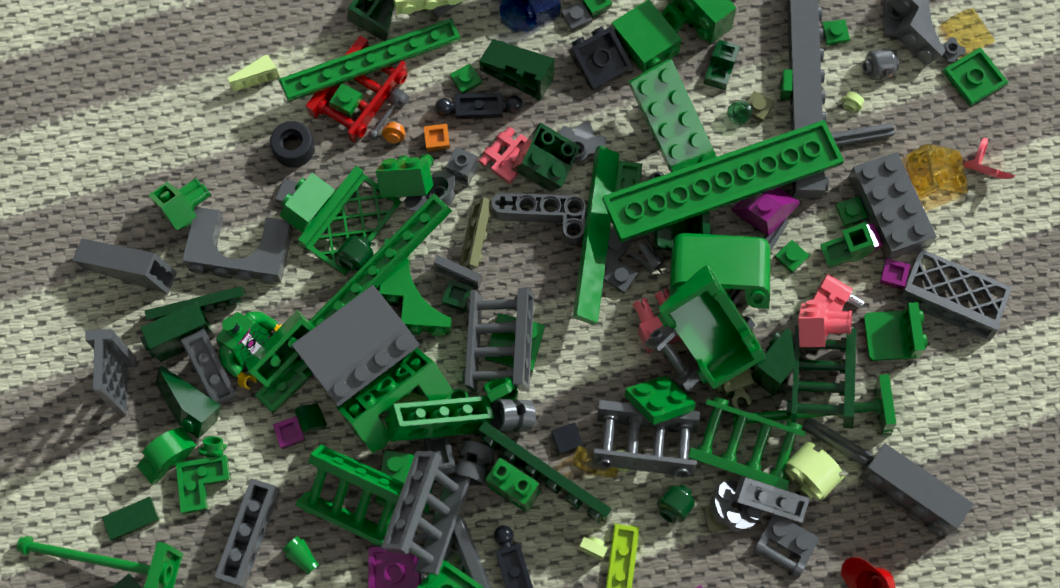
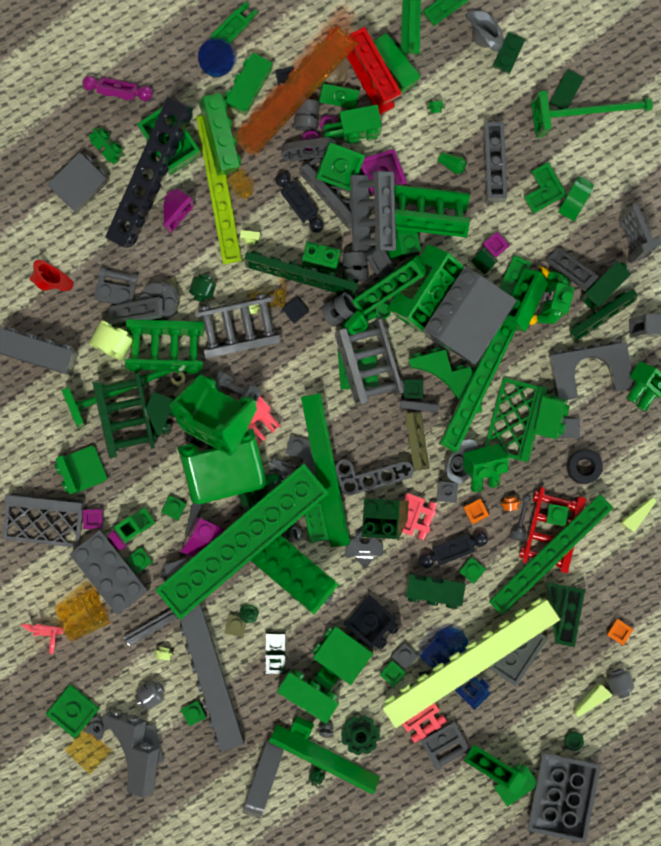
camera: 160 degrees right, 15 degrees up
(130, 518) = (582, 148): dark green tile -> none
(188, 405) = (575, 238): dark green slope -> none
(212, 446) = (545, 216): green plate -> none
(355, 253) = (500, 392): dark green head -> none
(659, 399) = (237, 357): green plate -> none
(786, 84) = (219, 649): green tile -> none
(817, 322) = (140, 451): coral brick -> none
(835, 294) = (135, 481): coral piece -> none
(837, 441) = (99, 374): dark grey axle -> none

